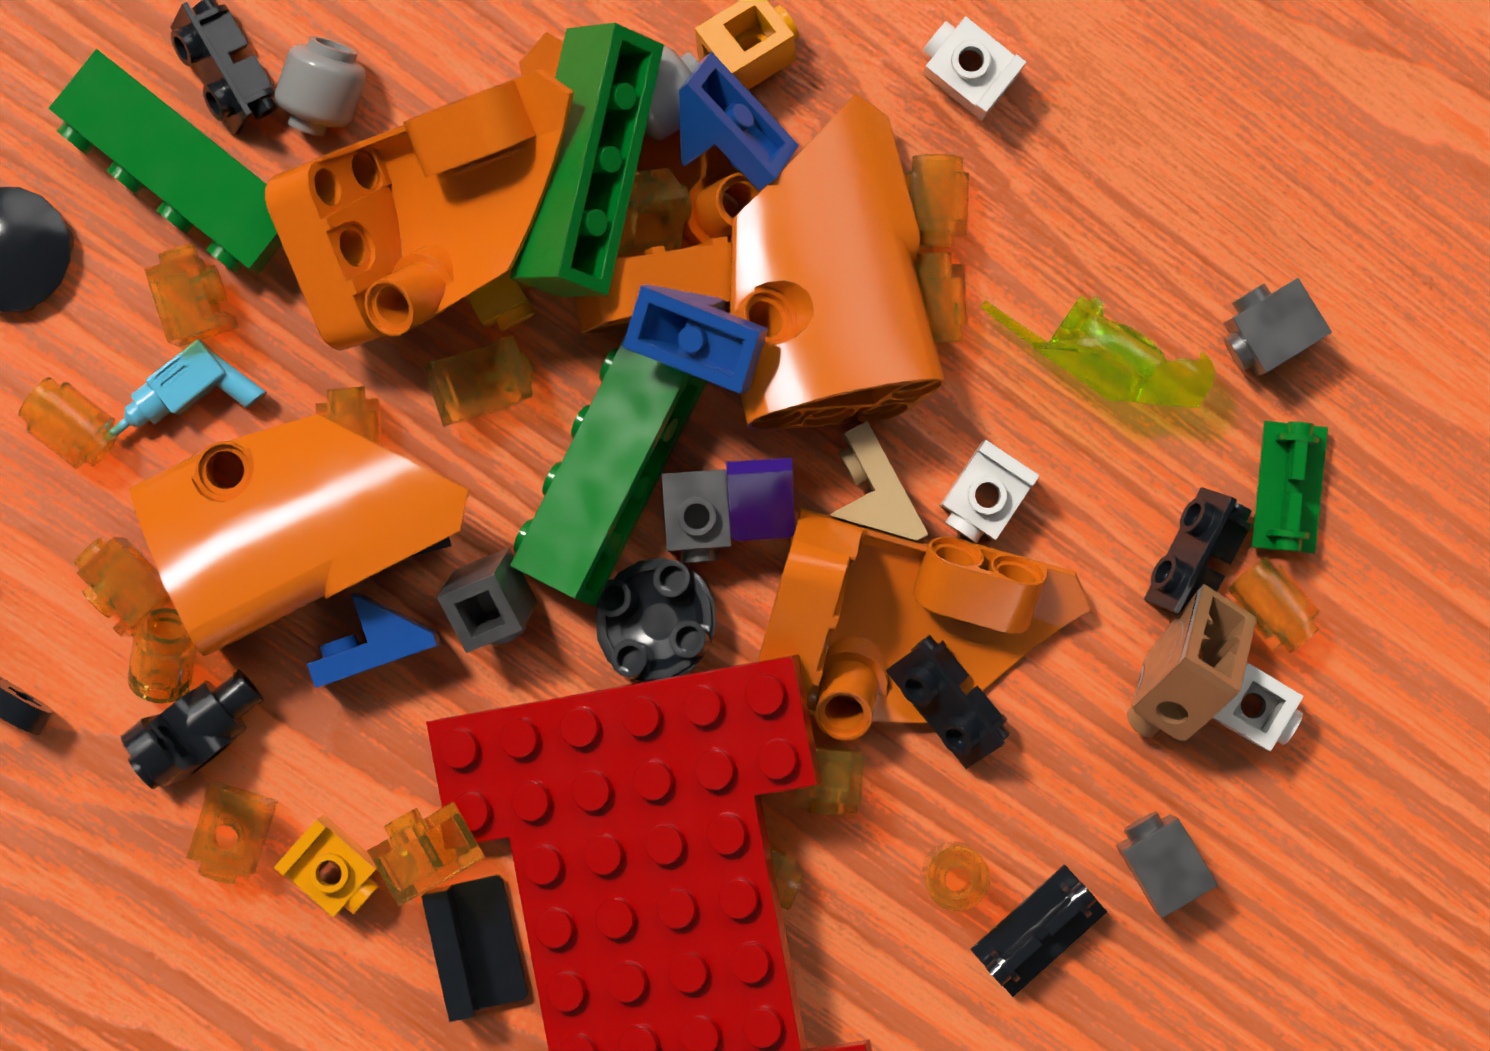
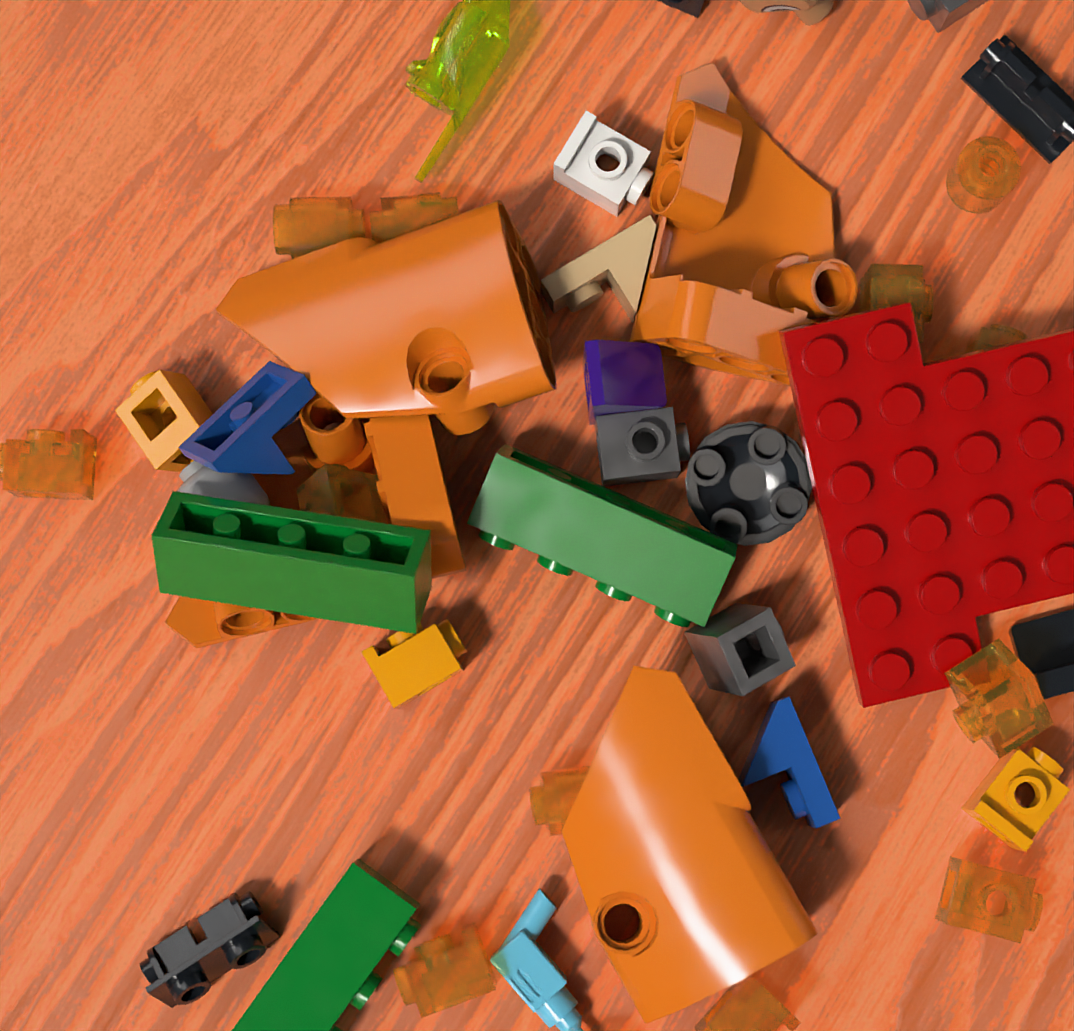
camera: 90 degrees left, 5 degrees down
(161, 657) = (818, 980): clear yellow brick -> none
(190, 730) = (892, 945): black piece -> none
(320, 85) = (226, 847): light grey head -> none
(421, 210) = (348, 730): orange panel -> none
(480, 381) = (518, 669): clear yellow bracket -> none
(695, 336) = (467, 440): blue slope -> none
(964, 722) = (823, 184): black hinge -> none
(973, 90) = (209, 199): white brick -> none

